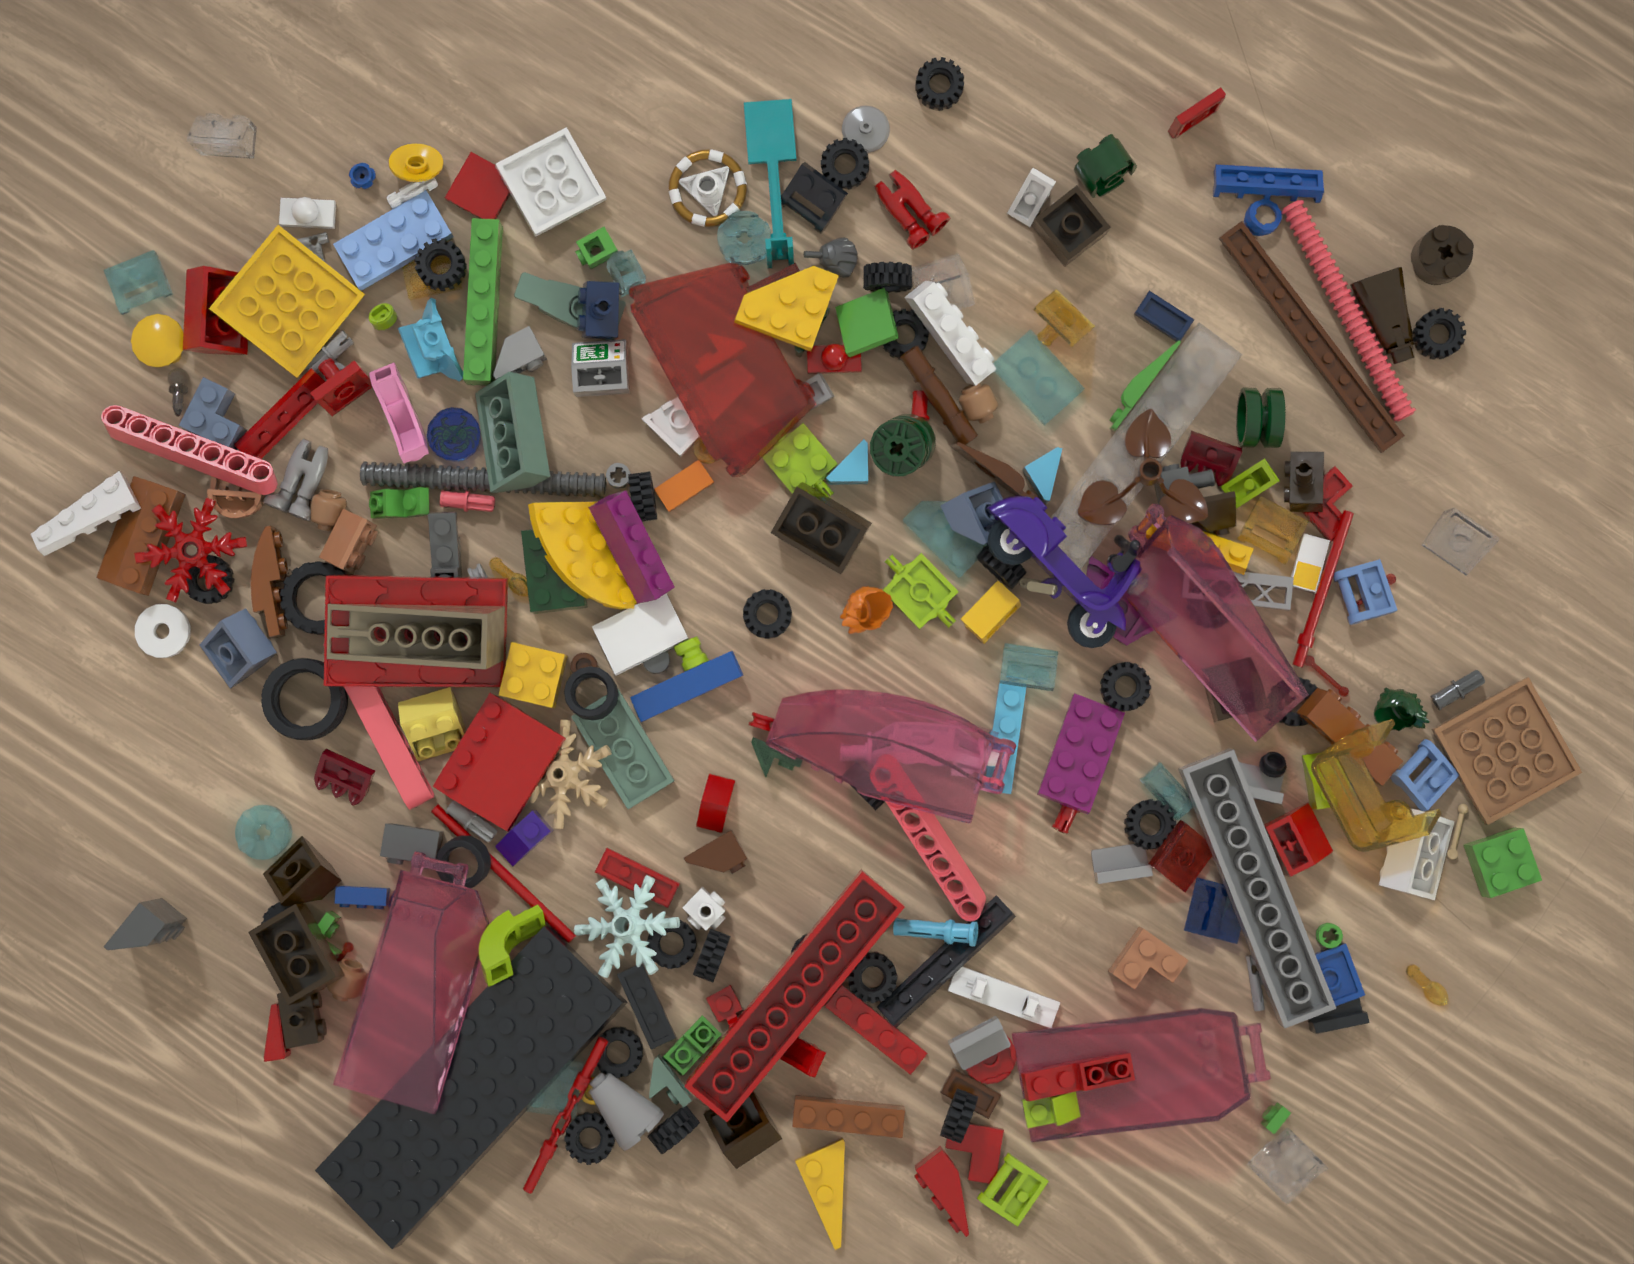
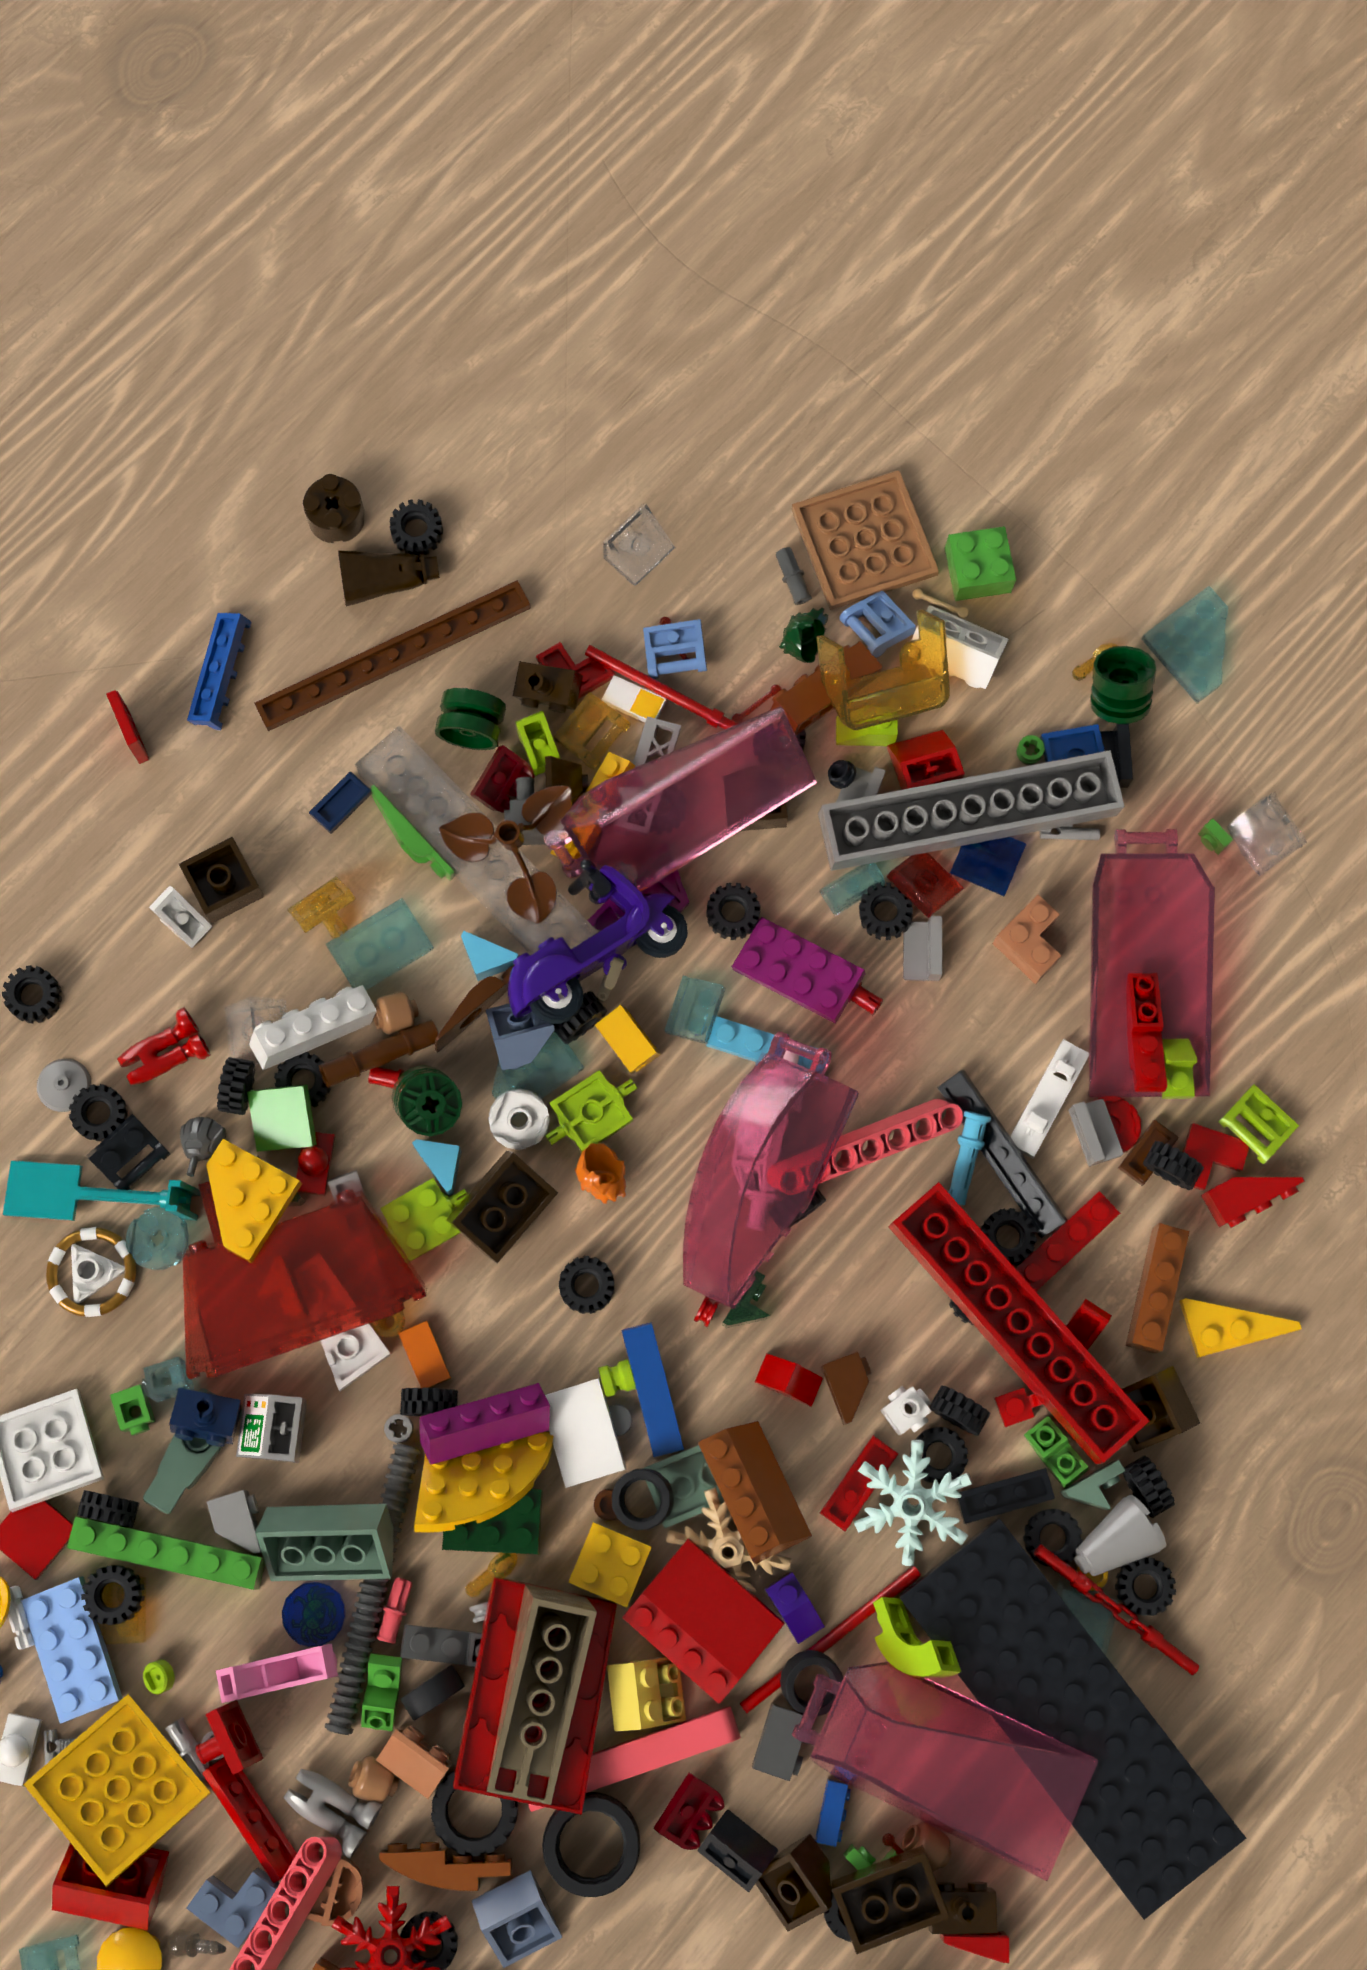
camera: 80 degrees left, 10 degrees down
(273, 844) = (749, 1939): clear light blue plate -> none
(319, 822) = (738, 1850): none -> black panel
(404, 545) = (432, 1692): none -> black tyre
(429, 345) = (204, 1624): medium azure piece -> none
(471, 821) = (765, 1666): light grey axle -> none
(510, 245) = (108, 1508): none -> black tyre
(612, 787) = (754, 1490): none -> dark orange slope
(917, 528) = (518, 1101): none -> white tile
(1104, 166) = (164, 833): dark green brick -> none
(1254, 225) = (264, 690): blue piece -> none
(1348, 310) = (372, 613): coral piece -> none
(1405, 1012) = (1122, 684): none -> dark green wheel
(1461, 1074) = (1193, 643): none -> clear light blue plate

